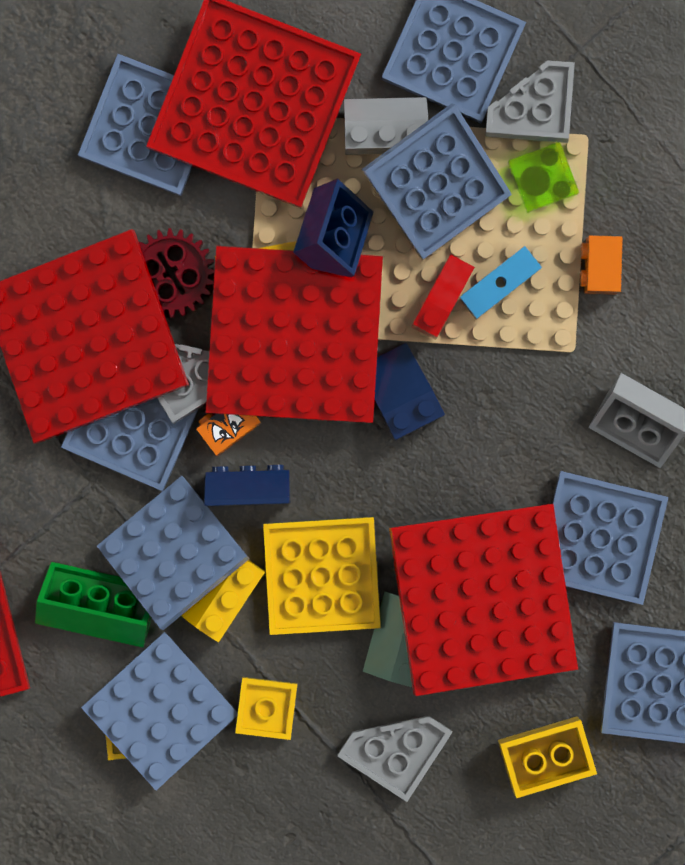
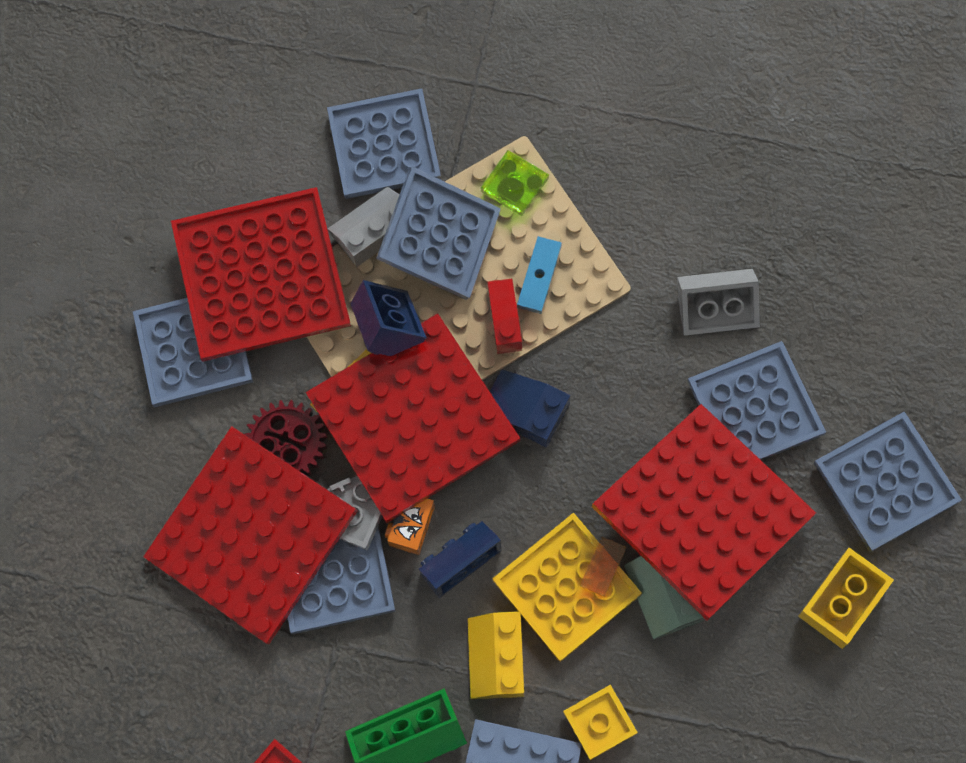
camera: 25 degrees left, 15 degrees down
(172, 552) = (437, 650): sand blue plate -> none
(363, 583) = (603, 566): none -> clear orange plate
(396, 752) = (728, 683): light grey plate -> none
(536, 106) = (472, 139): light grey plate -> none
(602, 265) = (604, 213): orange brick -> none

